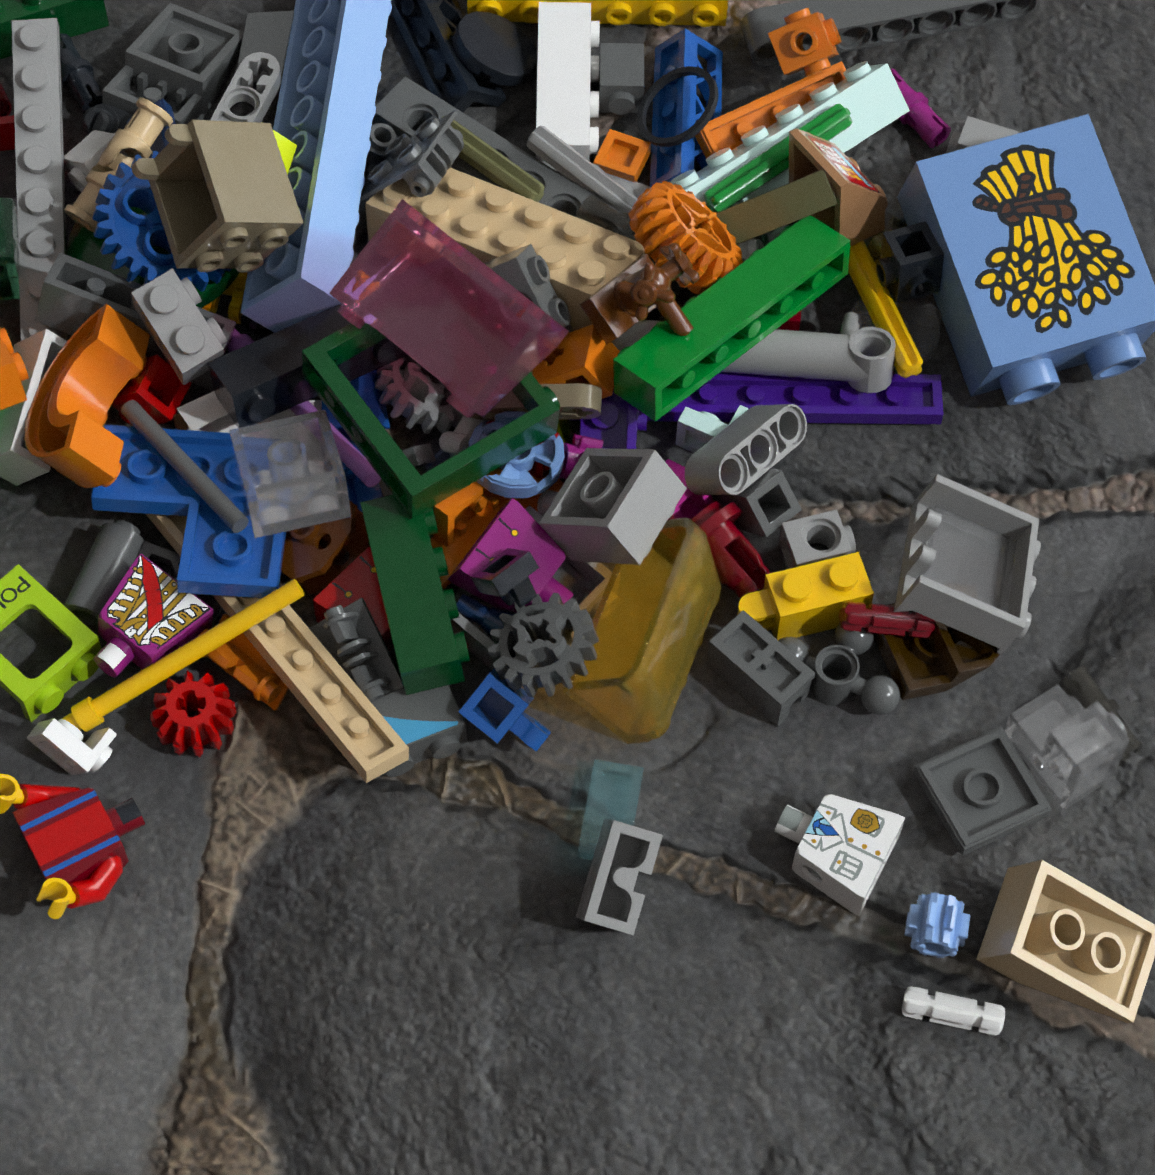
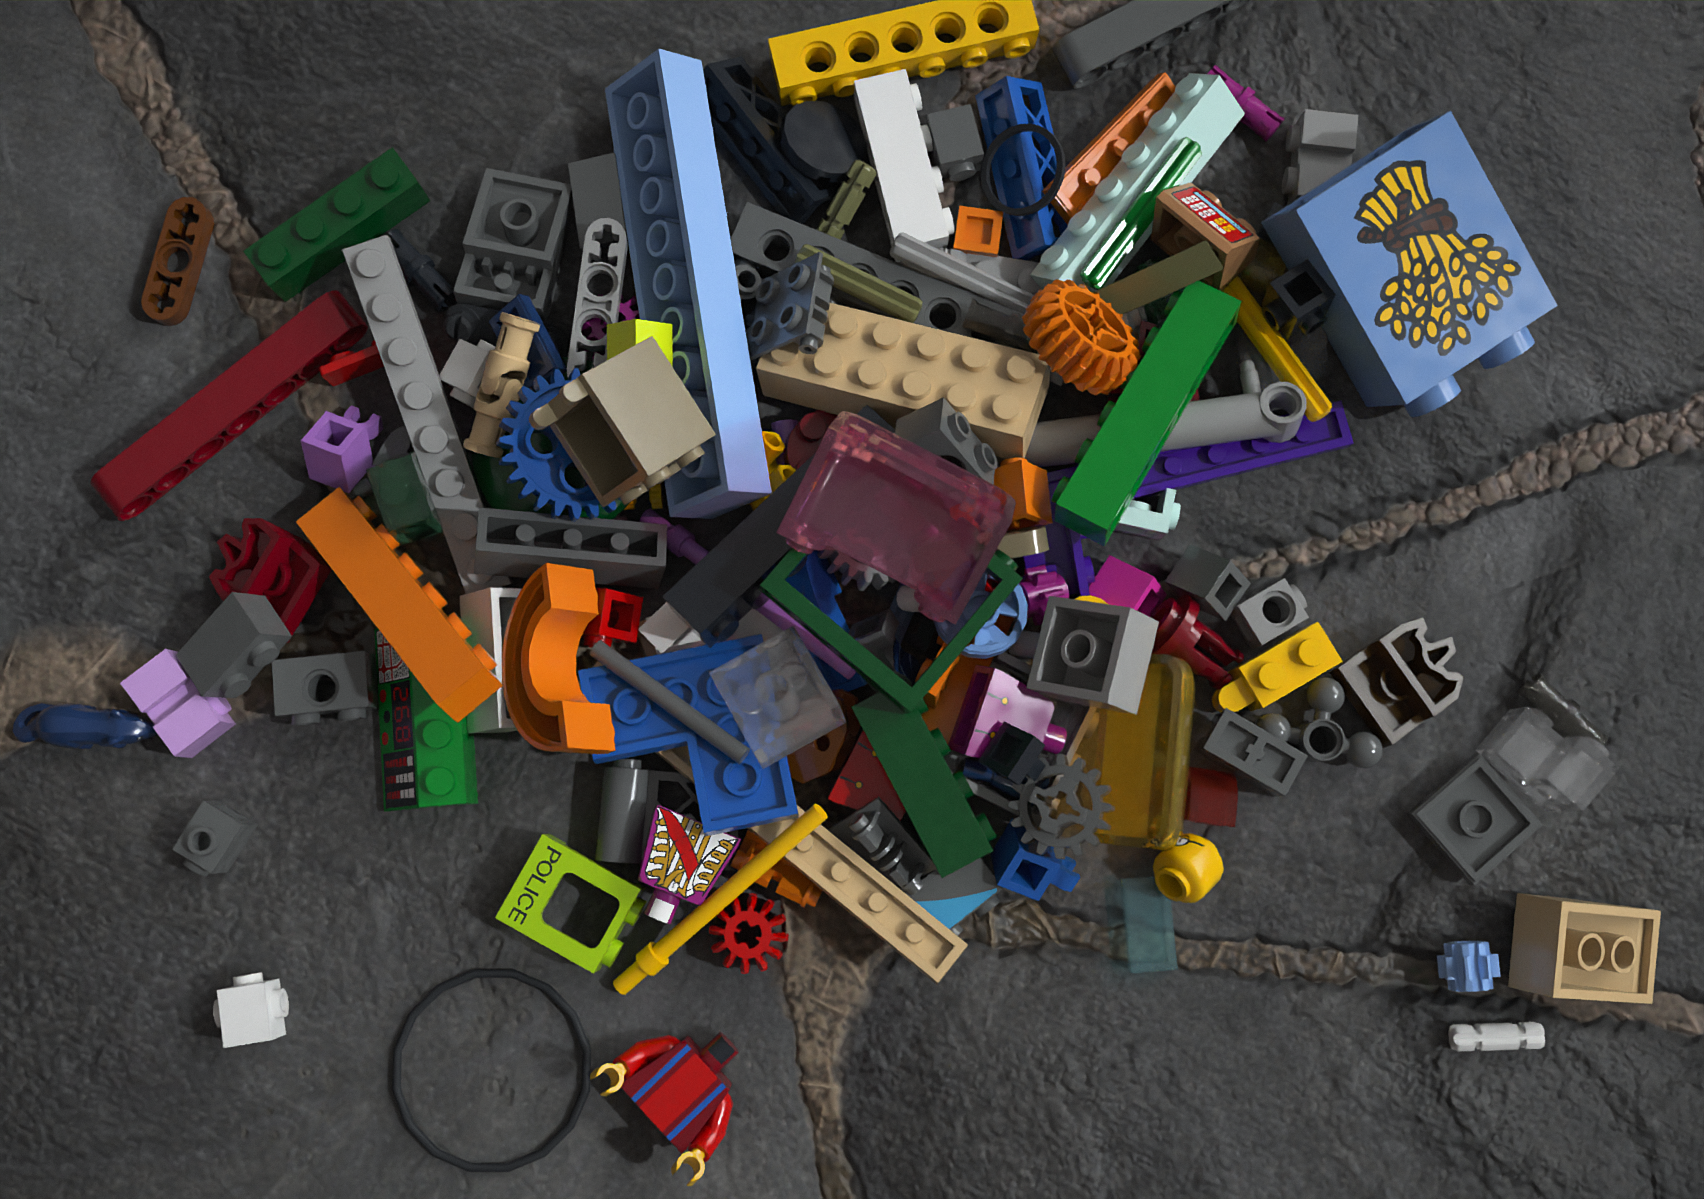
camera: 15 degrees left, 20 degrees up
(64, 746) = (649, 1001): white bracket -> none
(178, 326) = (621, 566): light grey brick -> none
(505, 96) = (847, 199): none -> olive axle
(609, 887) = (1180, 990): light grey brick -> none
(639, 291) = (1064, 422): reddish brown piece -> none
(664, 758) = (1188, 869): none -> yellow head
(705, 707) = (1211, 797): none -> clear red brick
(745, 449) = (1188, 541): light grey beam -> none
(789, 42) = (1117, 70): orange brick -> none
(841, 847) = (1367, 911): white torso -> none
(884, 620) = (1358, 682): dark red axle -> none
(969, 563) = (1419, 606): light grey window -> none

